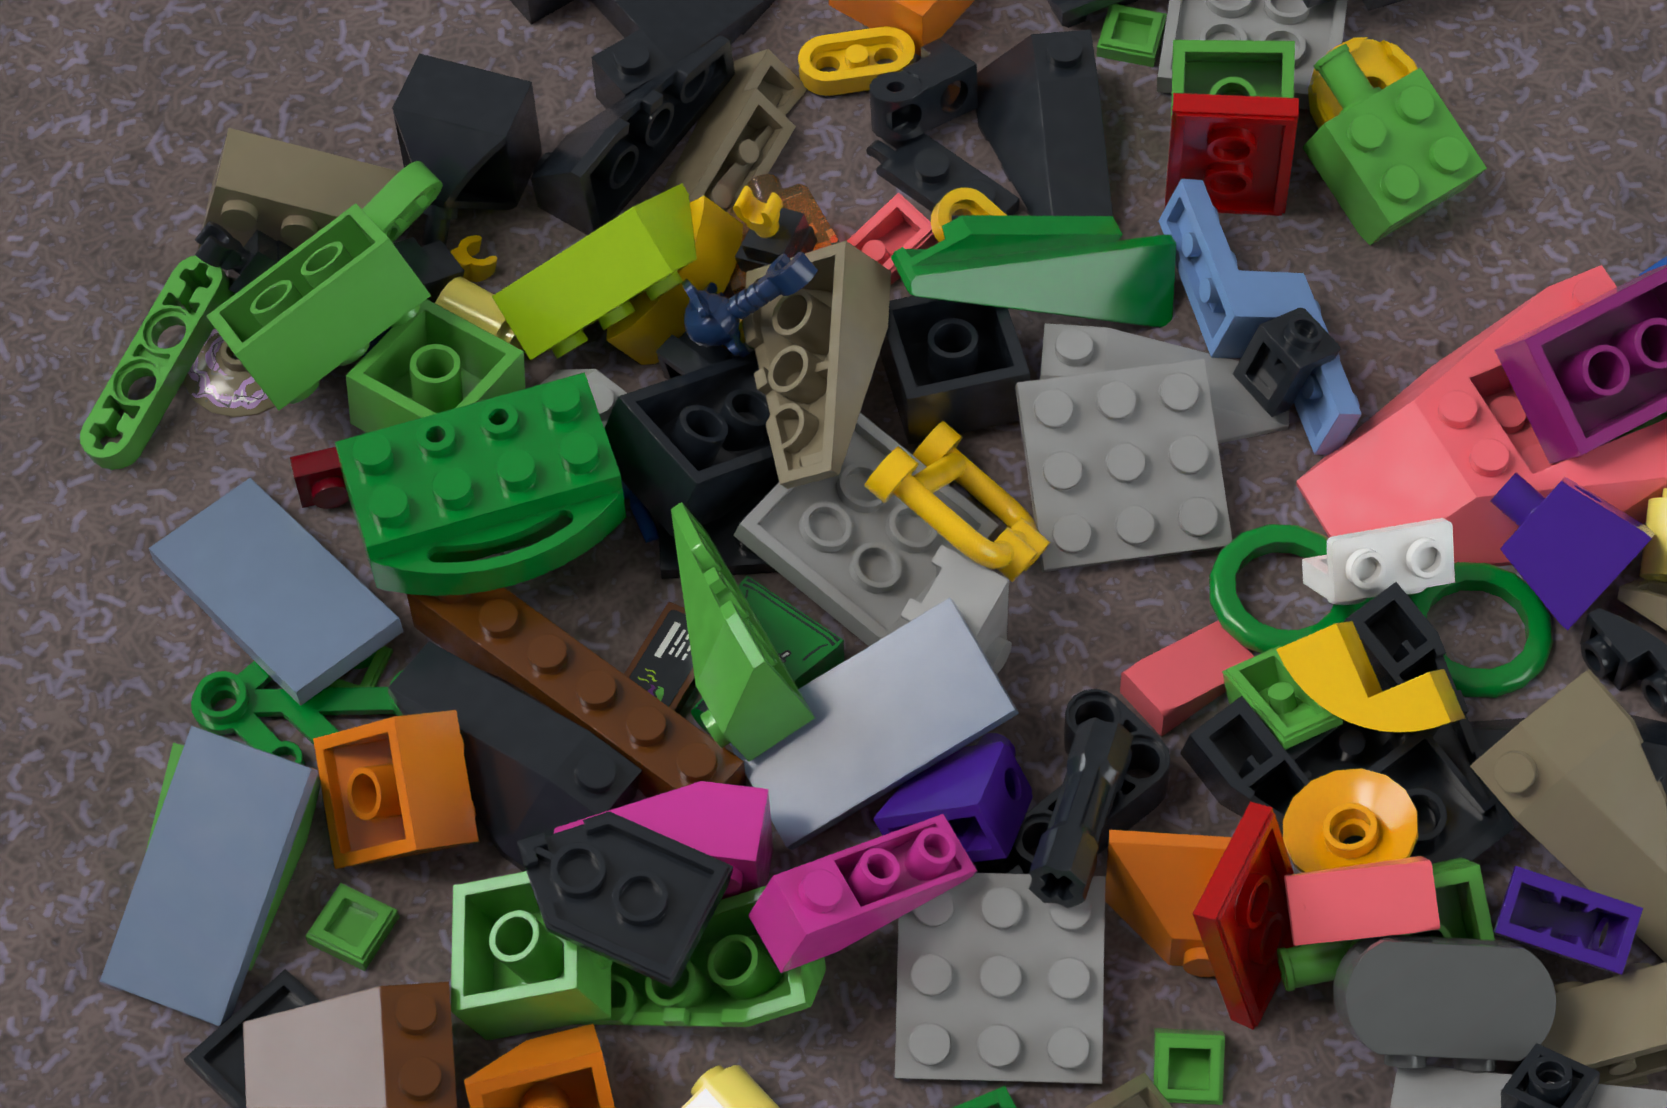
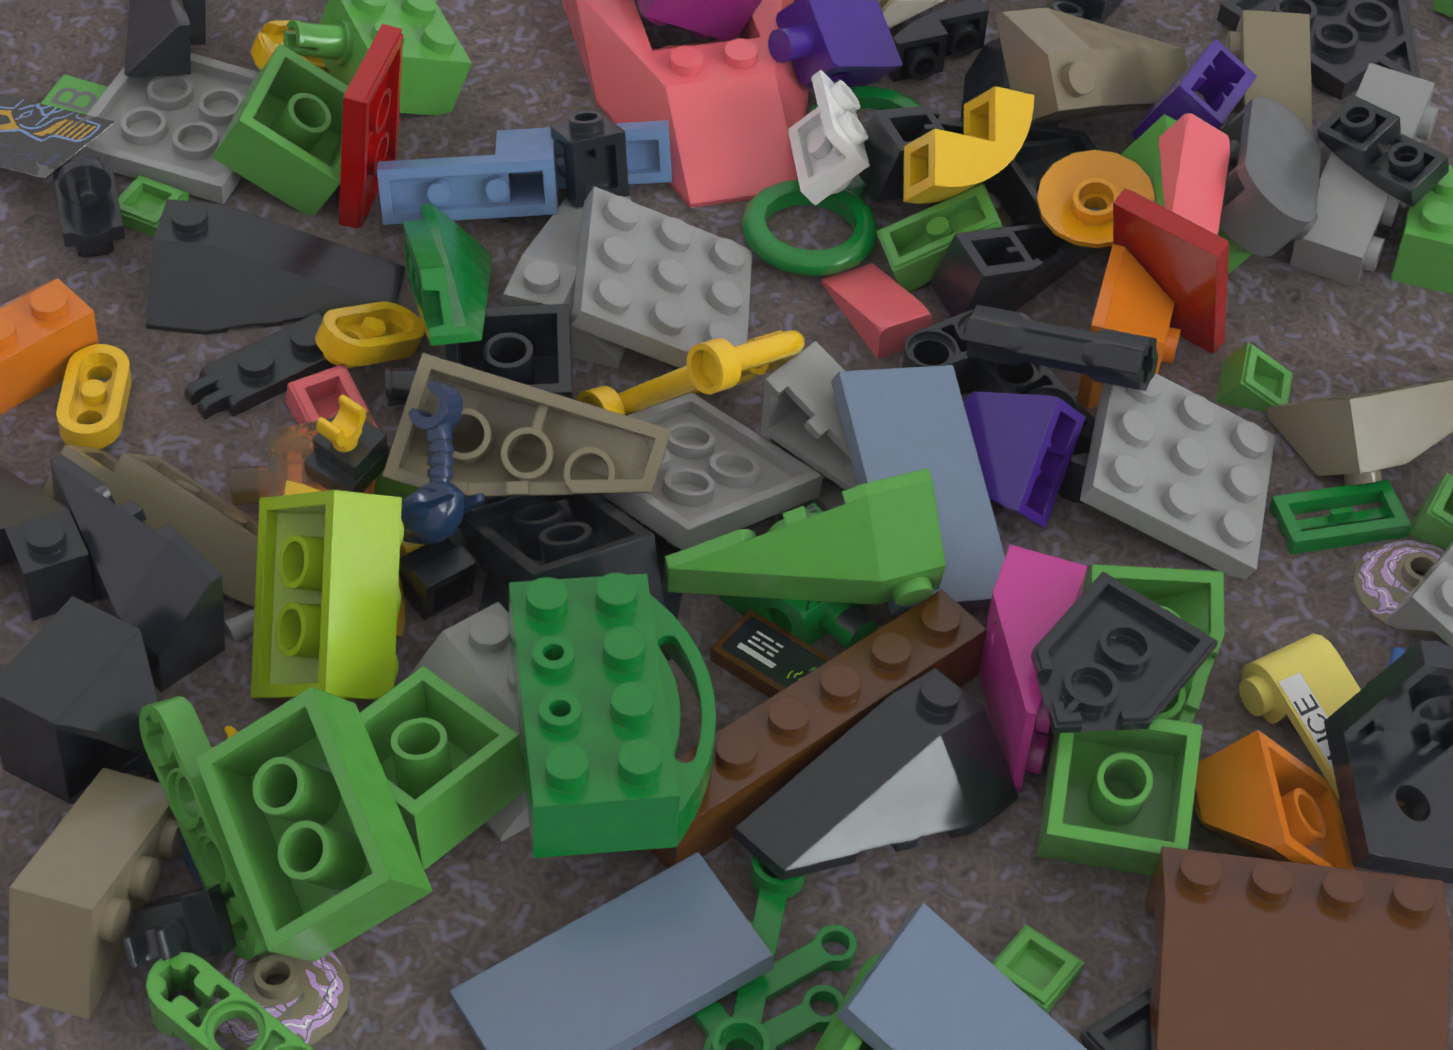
camera: 85 degrees left, 10 degrees down
(319, 479) = (481, 910): dark red plate -> none
(396, 788) = (900, 857): orange slope -> none
(857, 891) = (1136, 507): dark pink slope -> none
(923, 93) = (166, 338): black leg -> none

